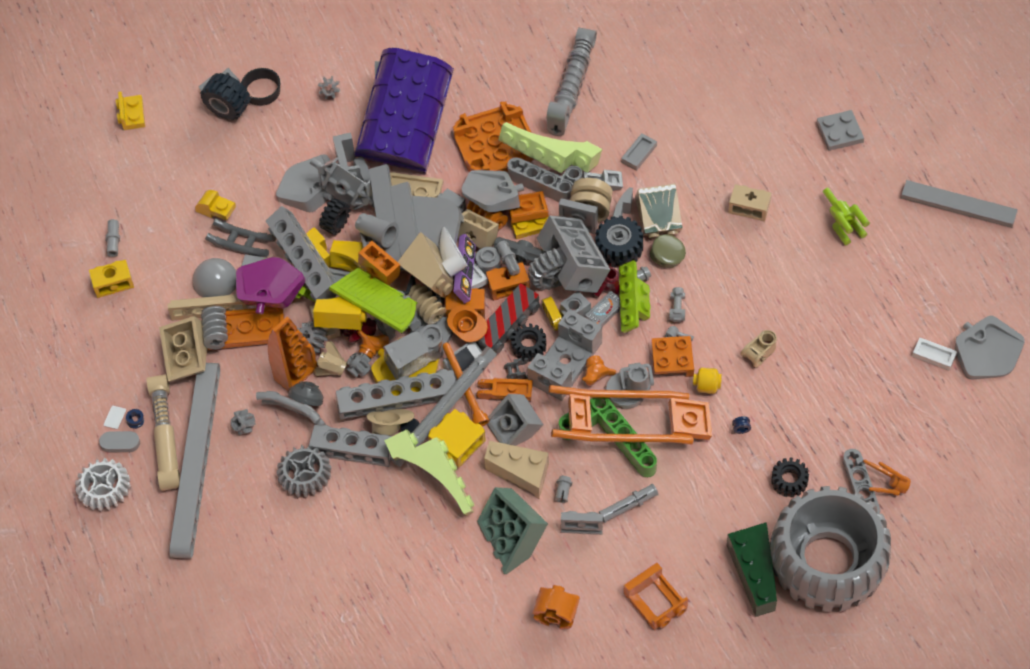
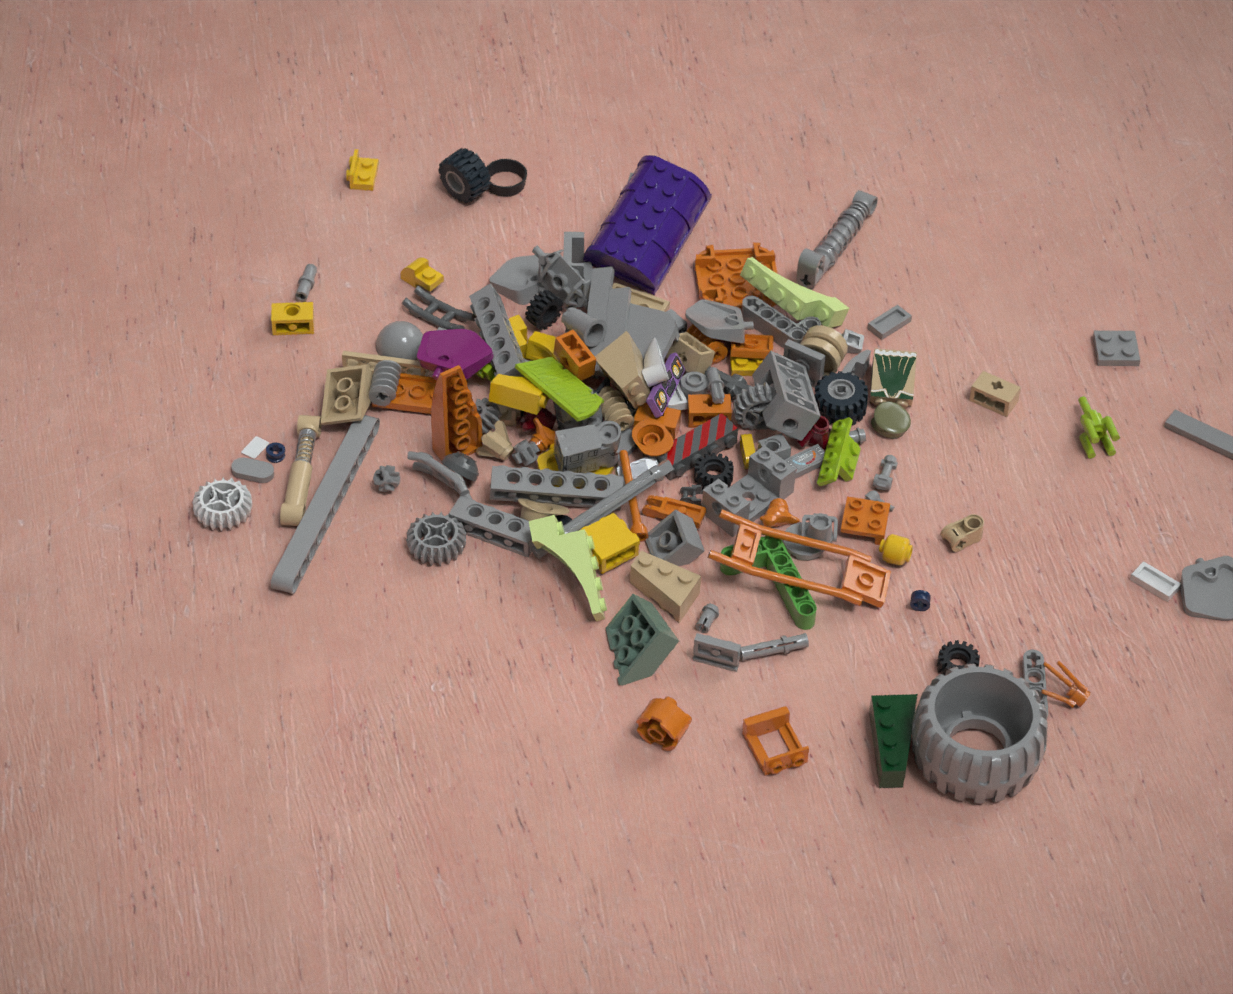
camera: 10 degrees right, 10 degrees down
(324, 89) = (582, 190): light grey gear -> none

